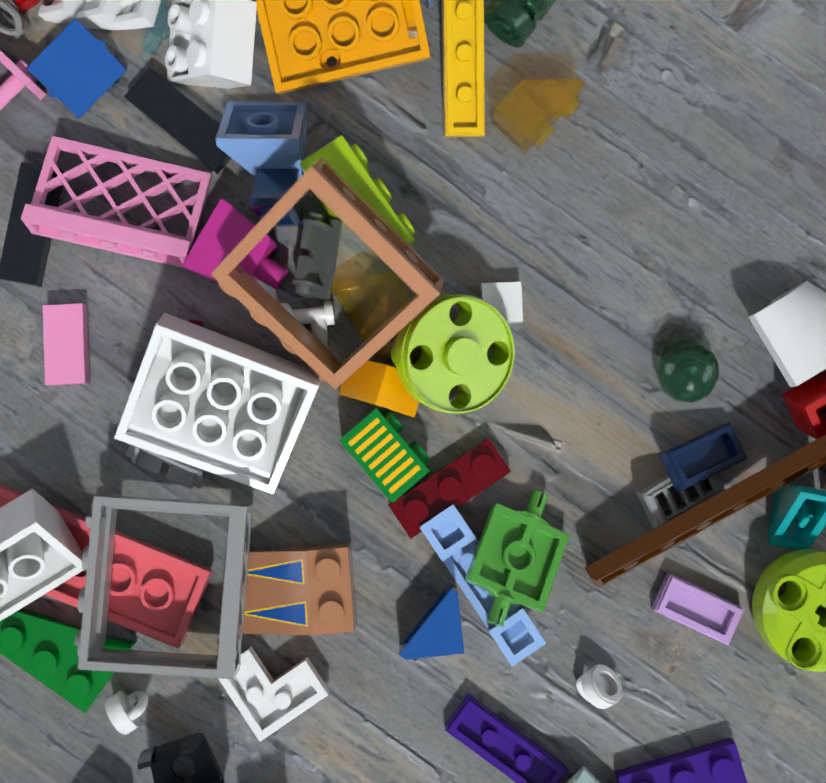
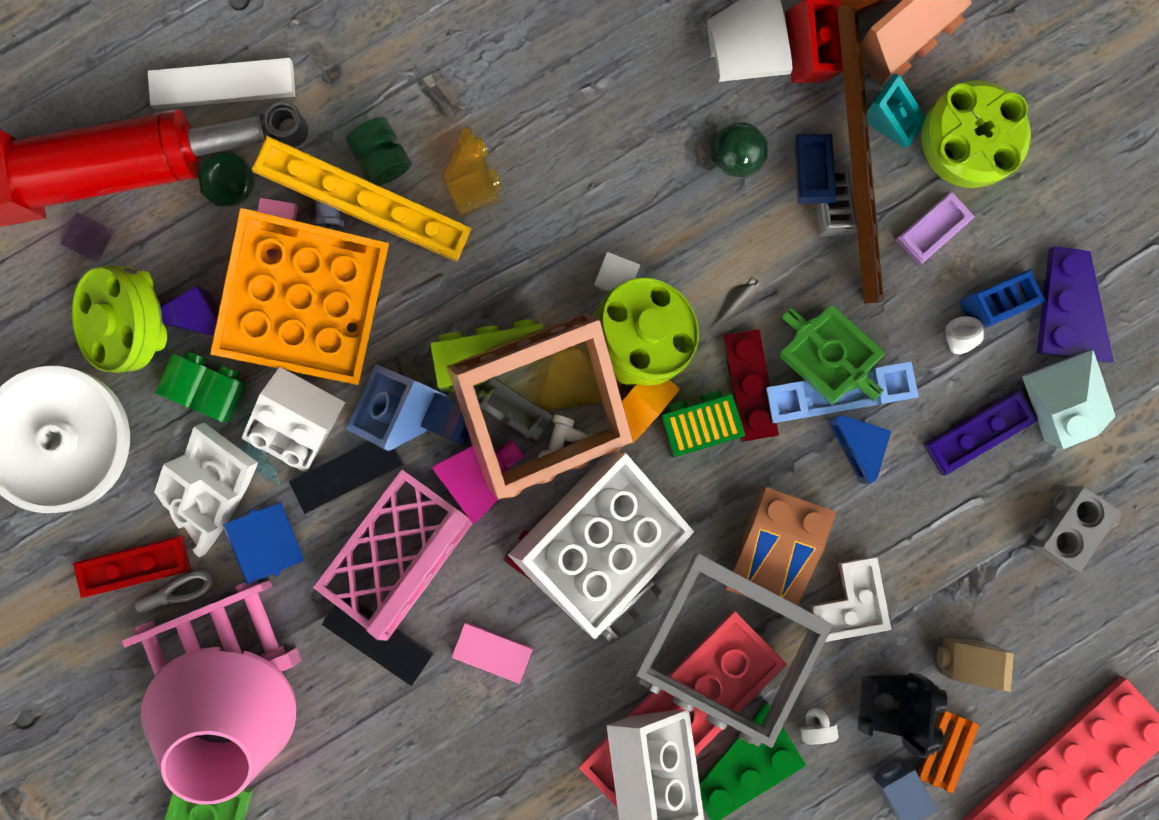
camera: 65 degrees left, 0 degrees up
(636, 694) = (982, 307): none -> blue slope

